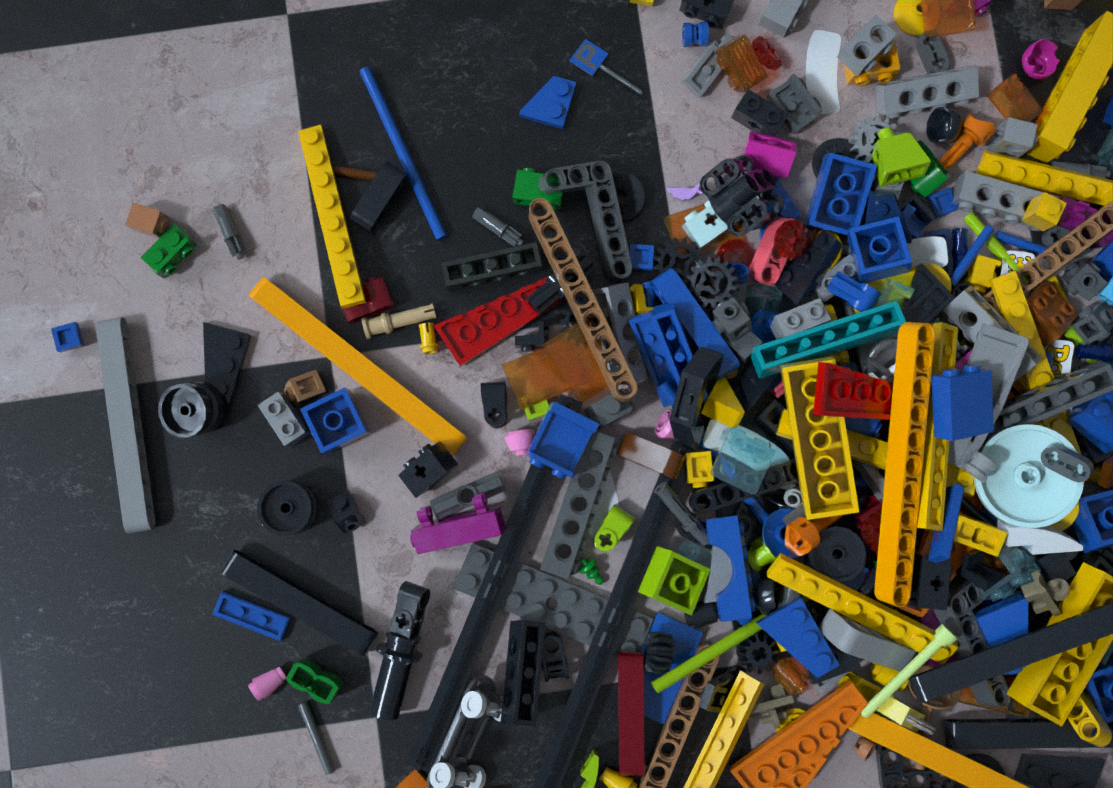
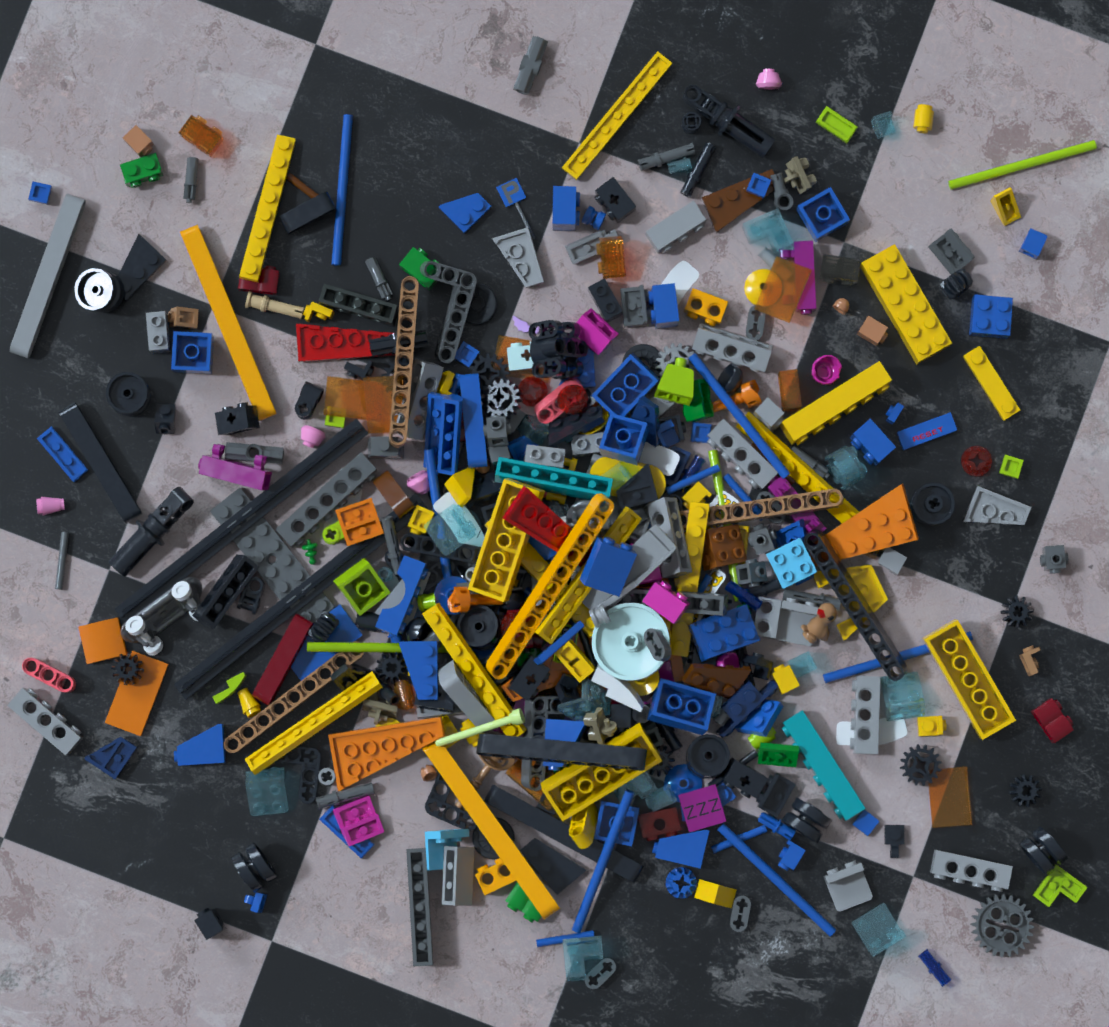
camera: 30 degrees right, 0 degrees up
(214, 176) = (201, 135): none -> clear orange brick
(320, 684) = (81, 516): green brick -> none
(428, 339) = (286, 332): yellow pin -> none
(453, 296) = (321, 312): none -> yellow bracket
(561, 440) = (337, 449): blue panel -> none
(631, 508) = (359, 521): none -> orange slope
(640, 117) = (522, 256): none -> light grey wing
(660, 37) = (564, 208): none -> blue brick
(690, 395) = (441, 461): black slope -> none
(743, 272) = (528, 401): blue plate -> none
(767, 53) = (637, 265): clear red gear -> none
(774, 687) = (388, 694): none -> black pin
(831, 83) = (664, 306): none -> blue brick
(859, 296) = (594, 463): blue piece -> none
(866, 45) = (700, 288): light grey brick -> none
(904, 715) = (464, 759): light yellow piece -> none
(983, 159) = (739, 416): none -> blue piece
(1044, 211) = (756, 475): yellow brick -> none
(1047, 407) = (666, 602): none -> dark pink brick

